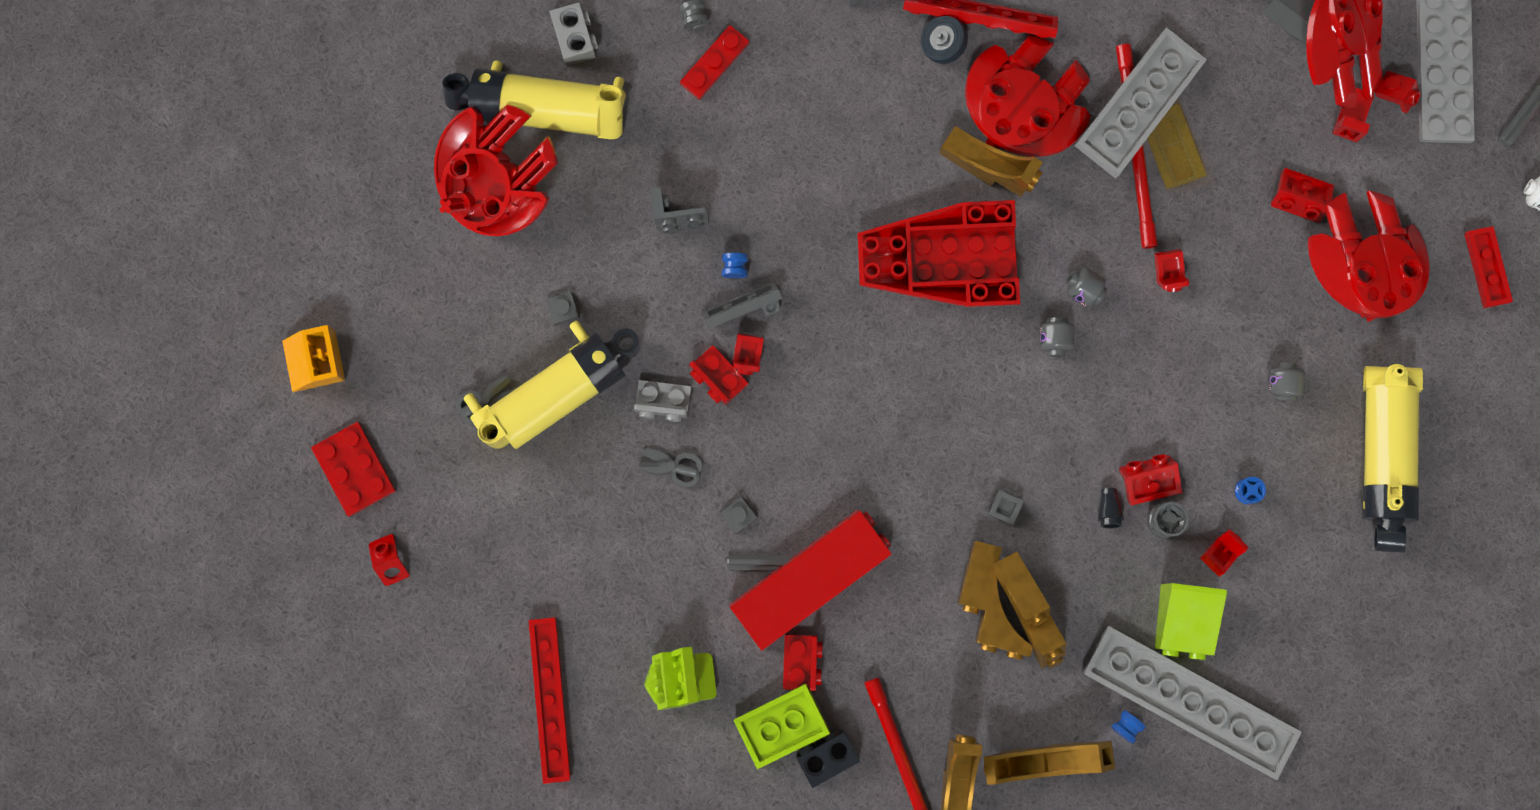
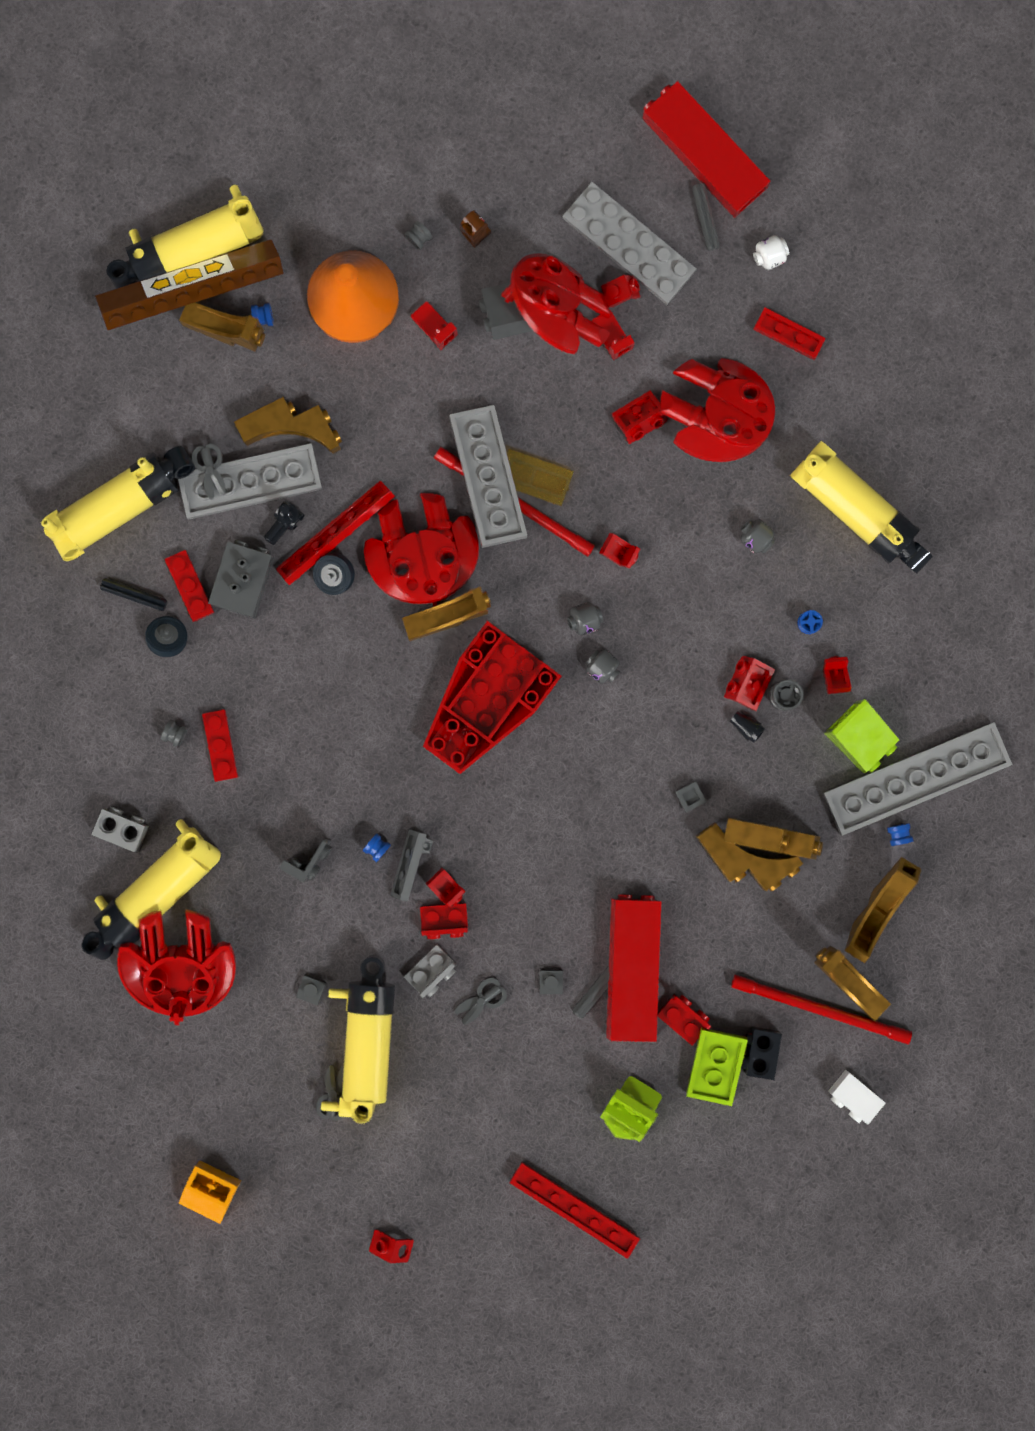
camera: 55 degrees left, 5 degrees up
(353, 469) = (308, 1222): red plate -> none

